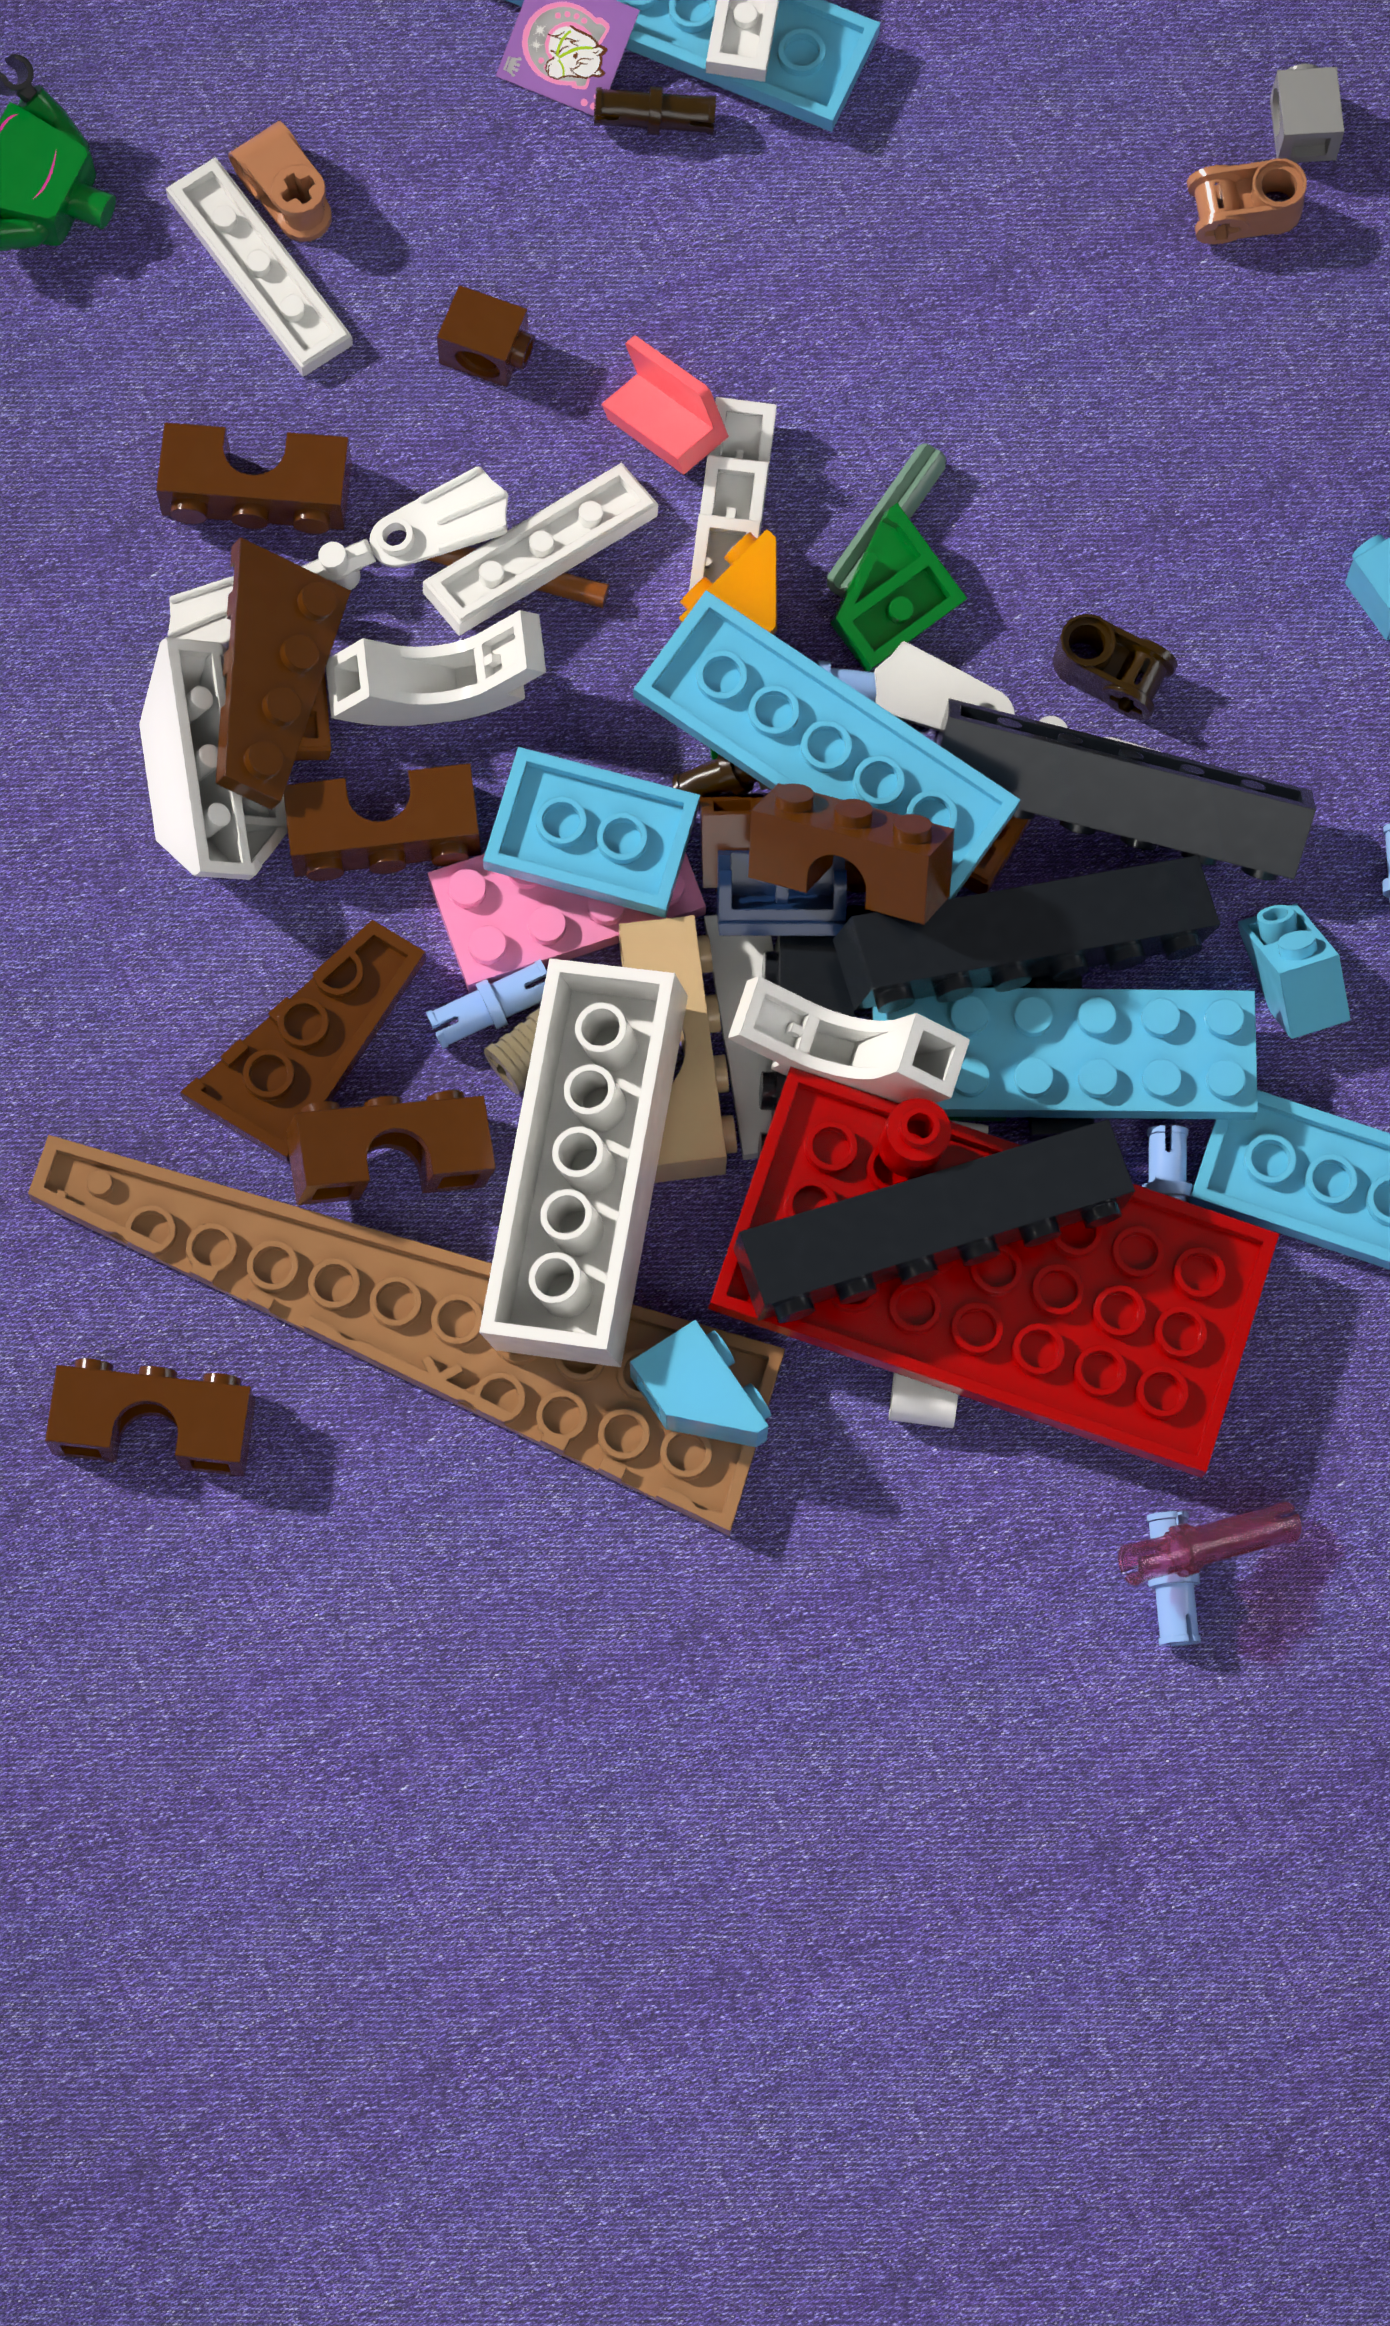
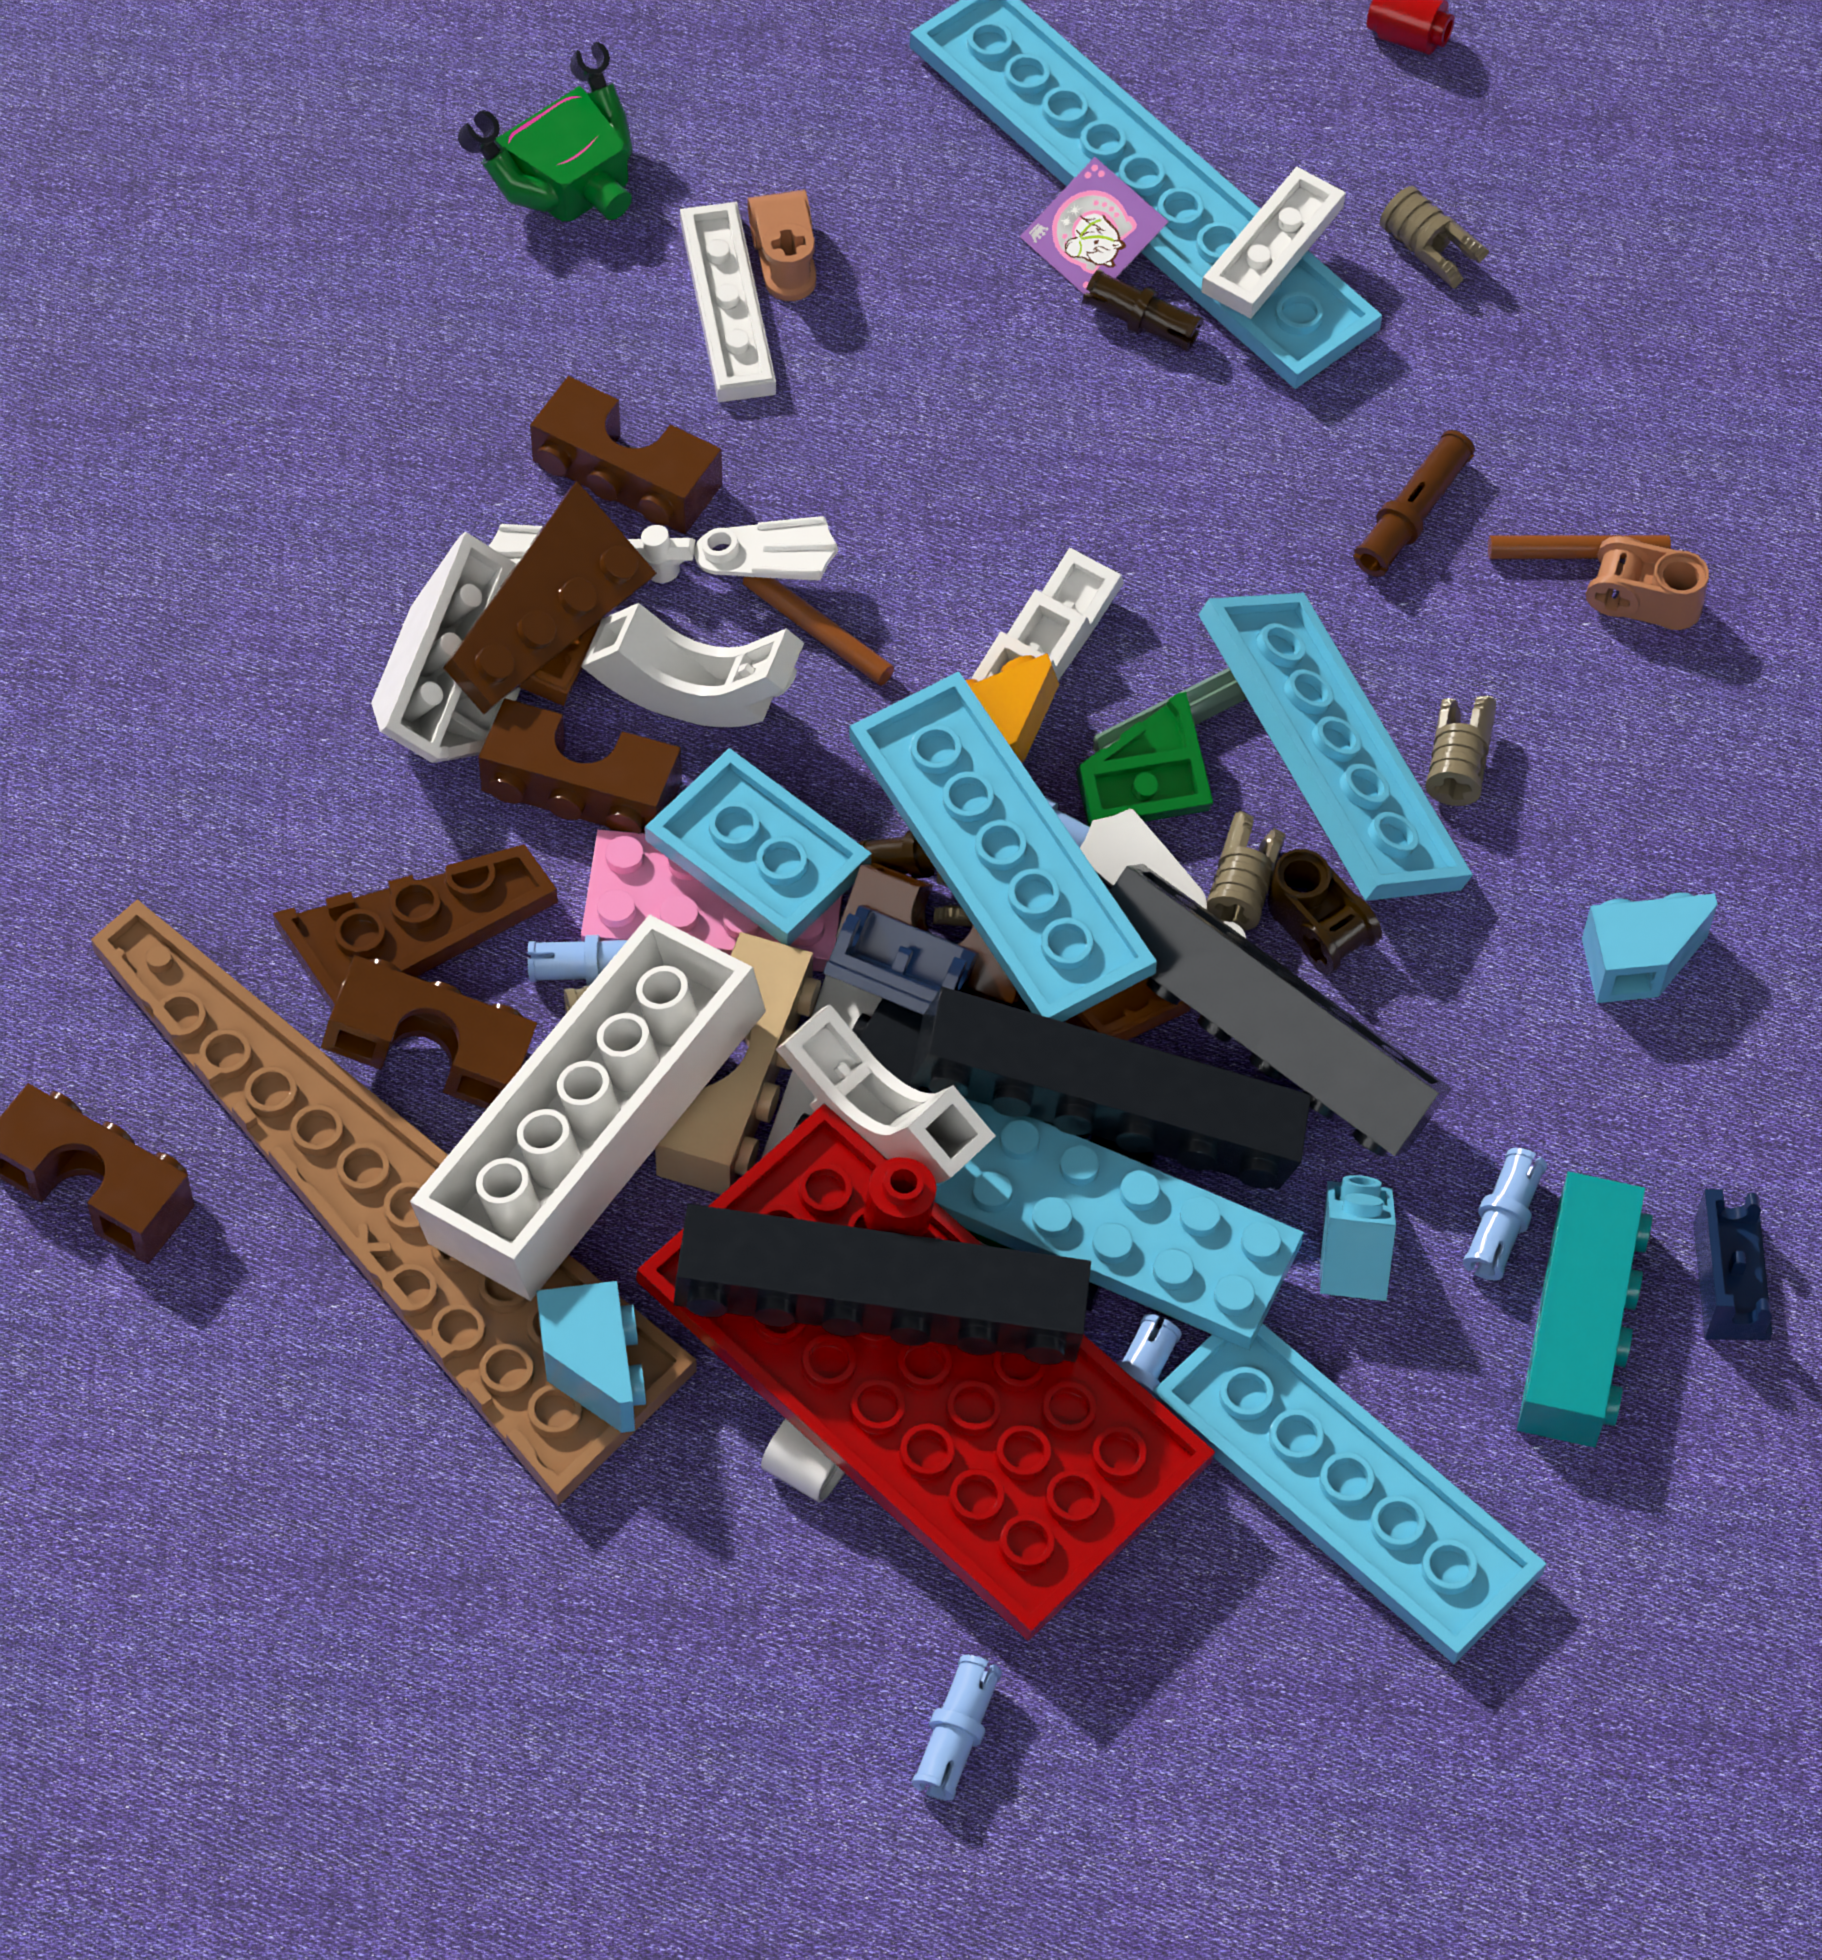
camera: 25 degrees right, 15 degrees down
(484, 336) = (890, 424): reddish brown brick -> none
(540, 549) = (848, 608): white tile -> none
(666, 409) = (1019, 542): coral panel -> none
(899, 856) = (1010, 951): reddish brown arch -> none
(996, 227) = (1402, 519): none -> reddish brown pin
(1027, 658) = (1244, 874): none -> dark tan hinge
(1049, 493) = (1335, 746): none -> medium azure plate
(1158, 188) = (1558, 546): none -> dark orange bar
(1159, 447) = (1460, 752): none -> dark tan hinge
(1190, 1548) = (979, 1694): clear pink pin -> none
(1307, 113) = (1740, 534): light grey brick -> none

